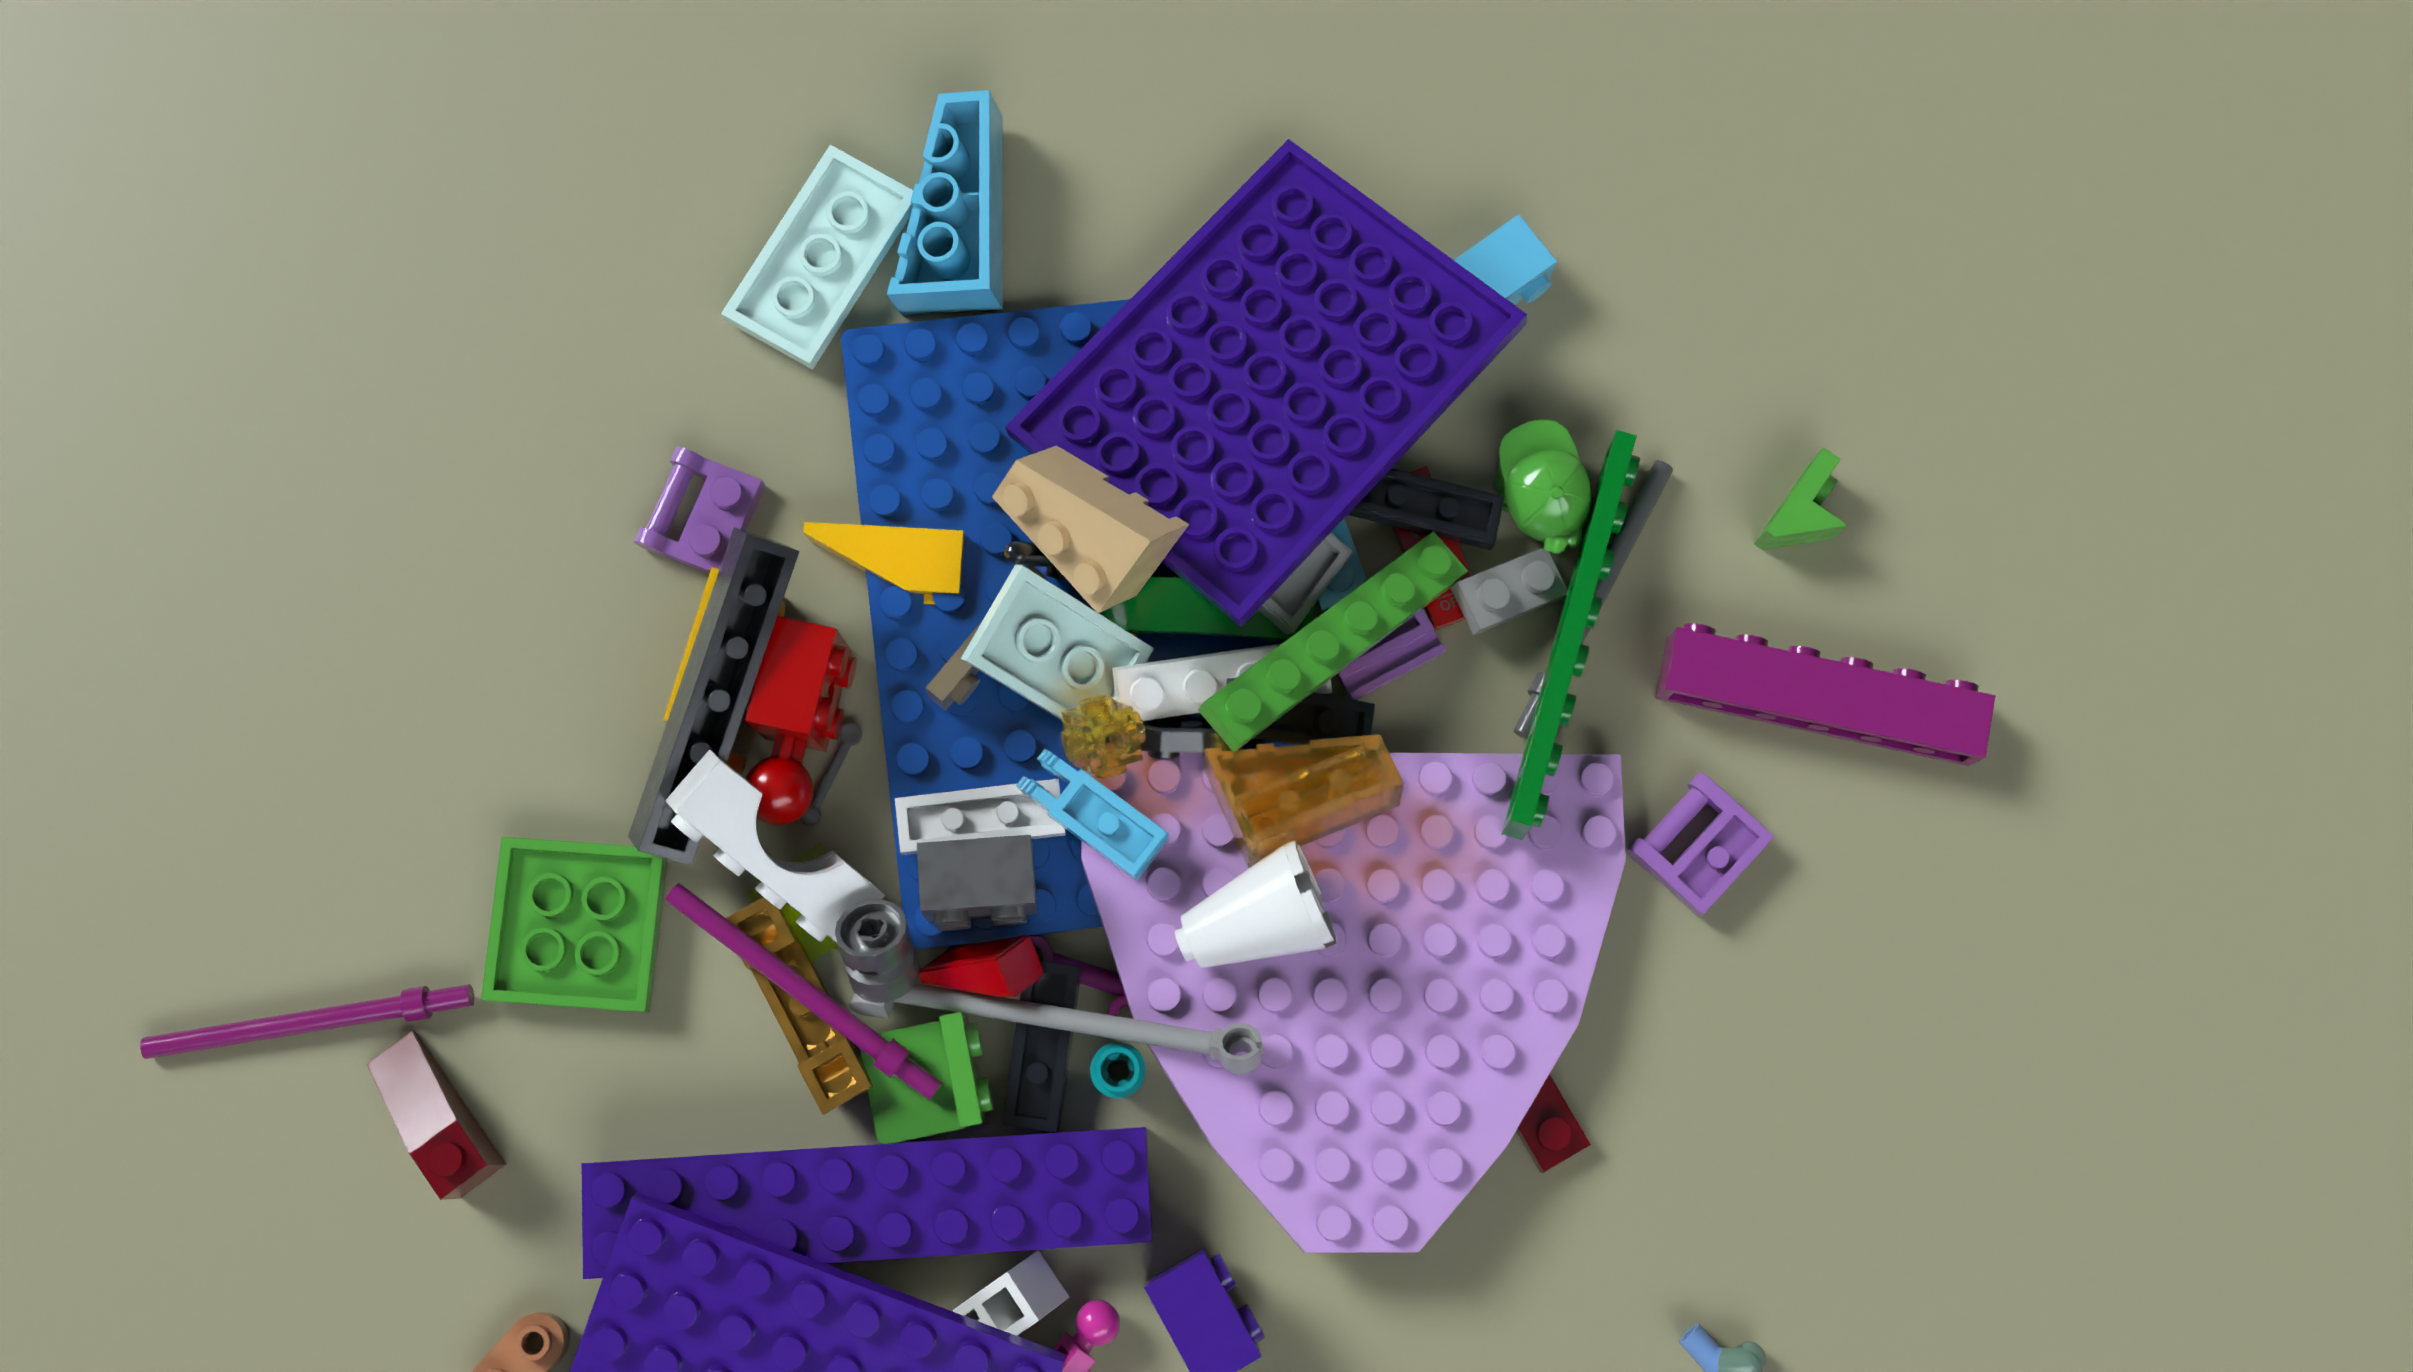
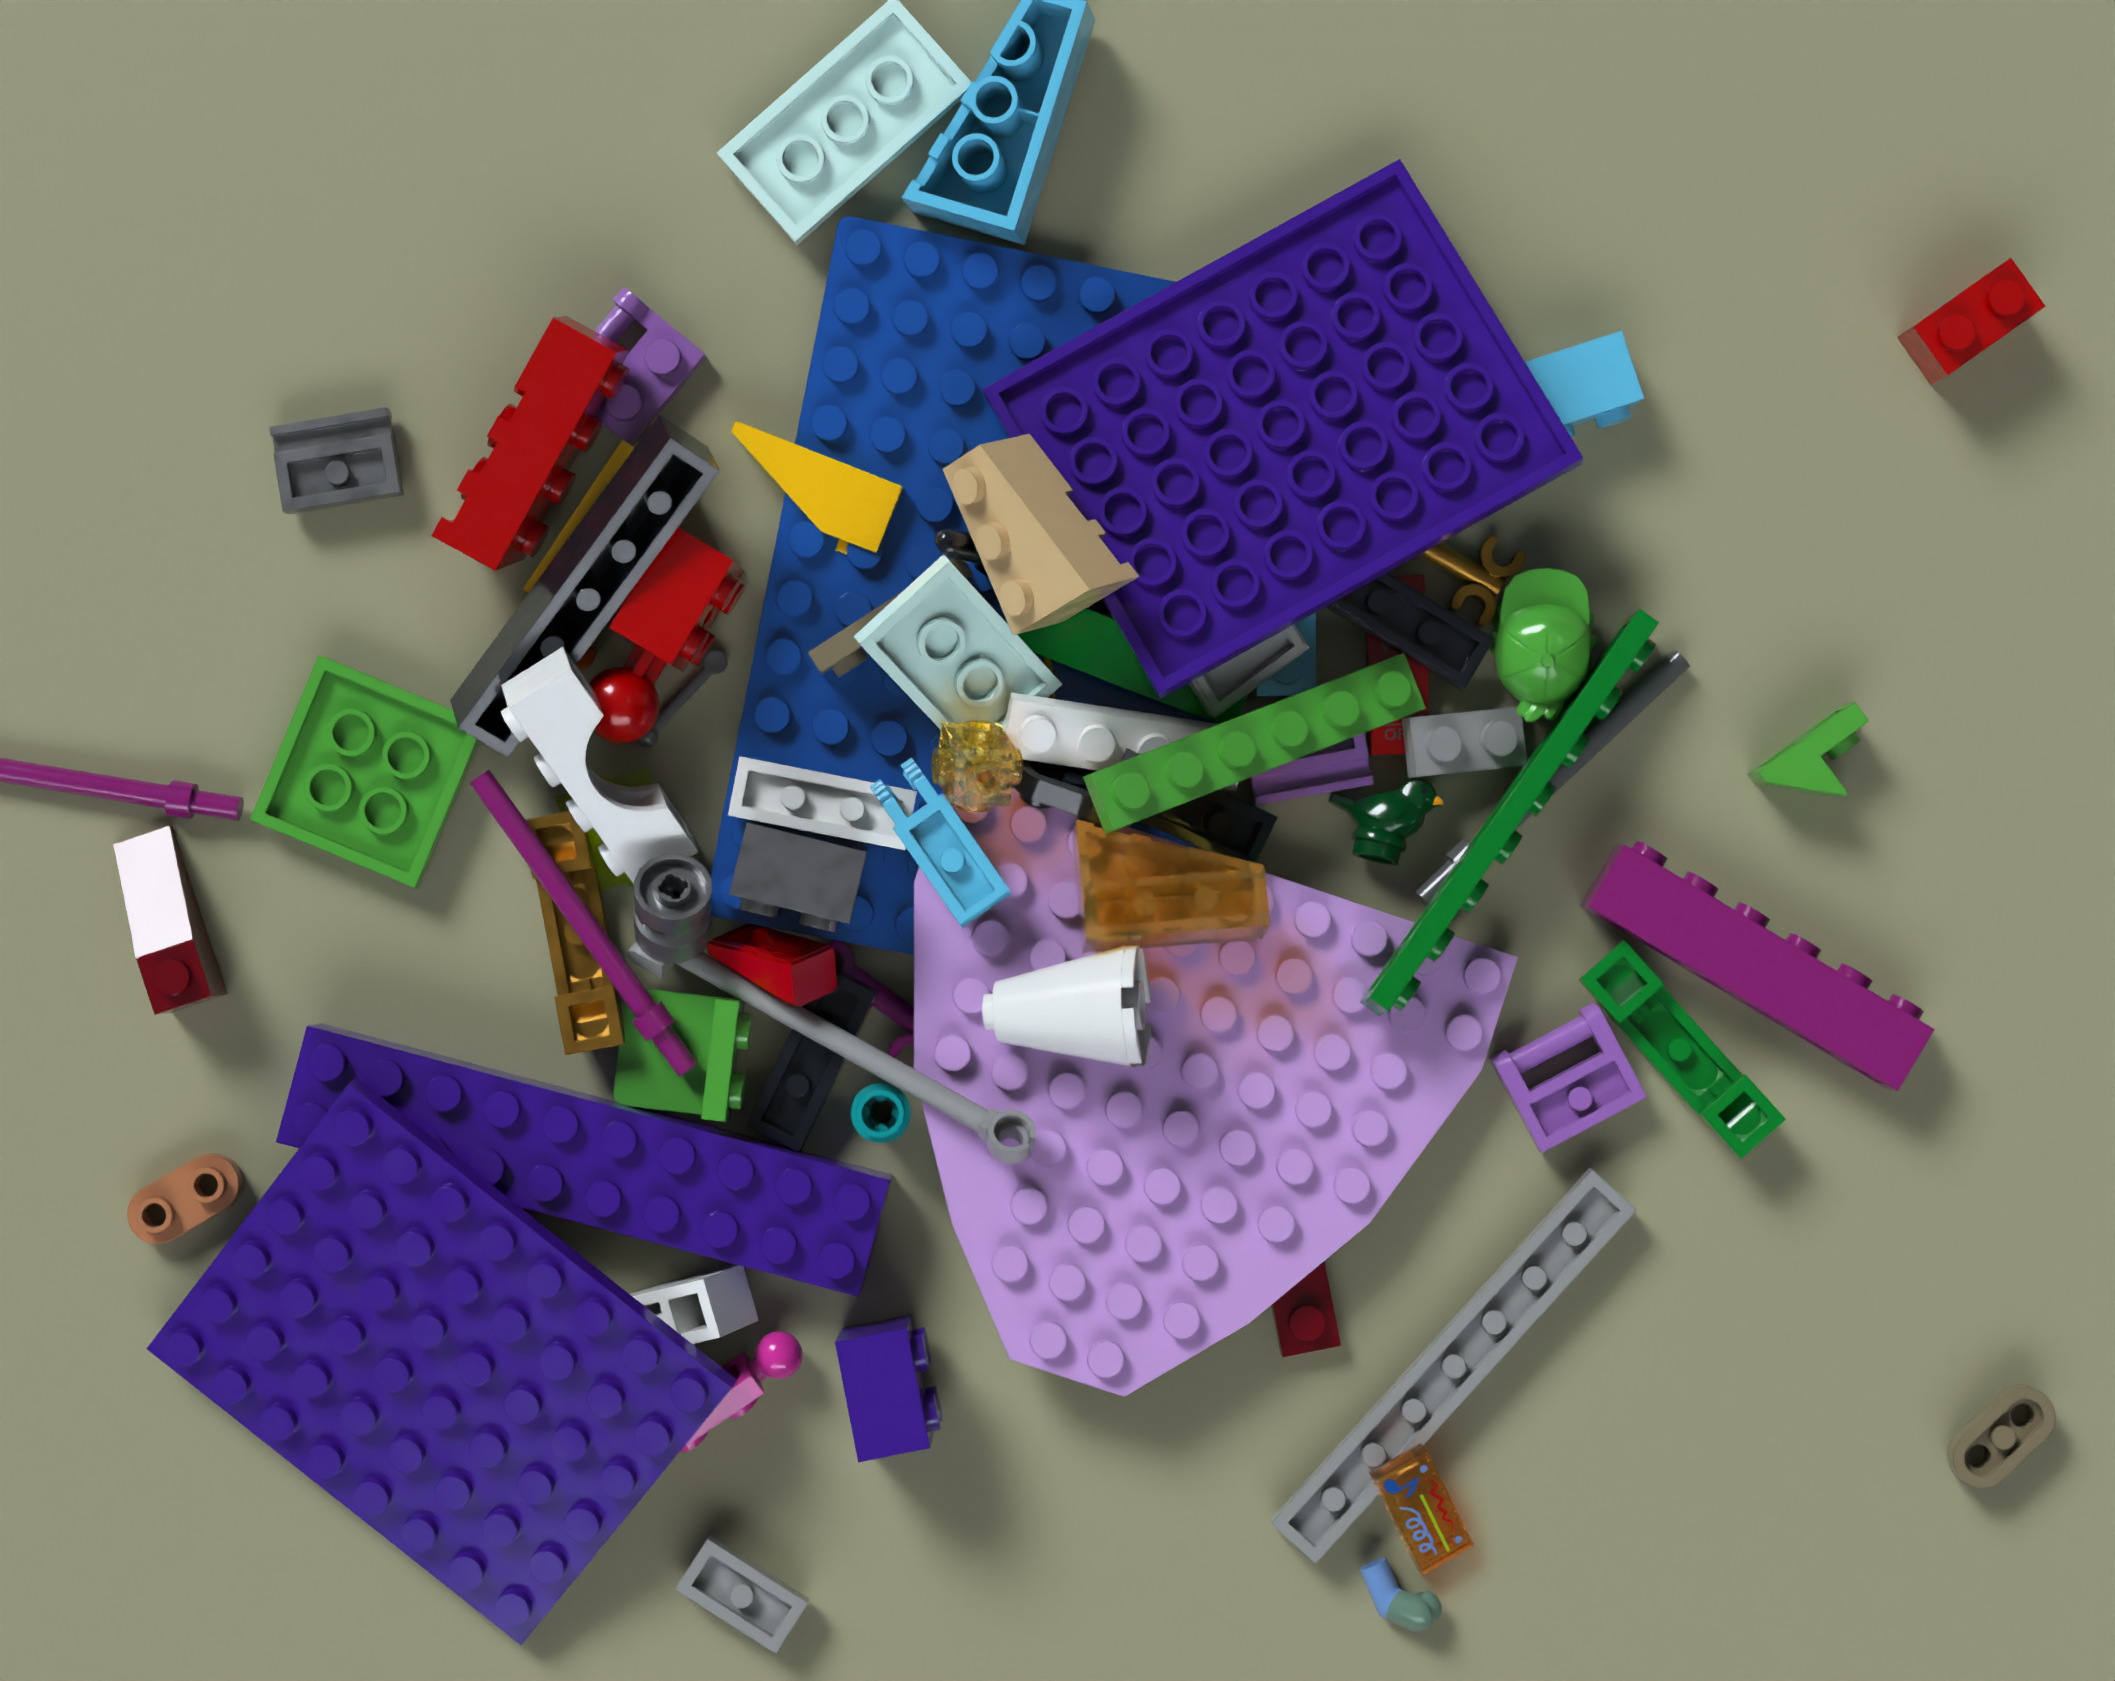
camera: 20 degrees right, 10 degrees up
(471, 669) = (336, 461): none -> flat silver plate
(637, 595) = (536, 445): none -> red wedge
(1468, 676) = (1388, 819): none -> dark green animal
(1475, 453) = (1484, 578): none -> pearl gold bar
(1693, 1132) = (1454, 1362): none -> light grey plate
(1714, 1266) = (1421, 1508): none -> clear orange tile
(1788, 790) = (1681, 1050): none -> green slope
(1797, 121) = (1971, 321): none -> red brick
(2189, 1033) = (2003, 1441): none -> dark tan plate

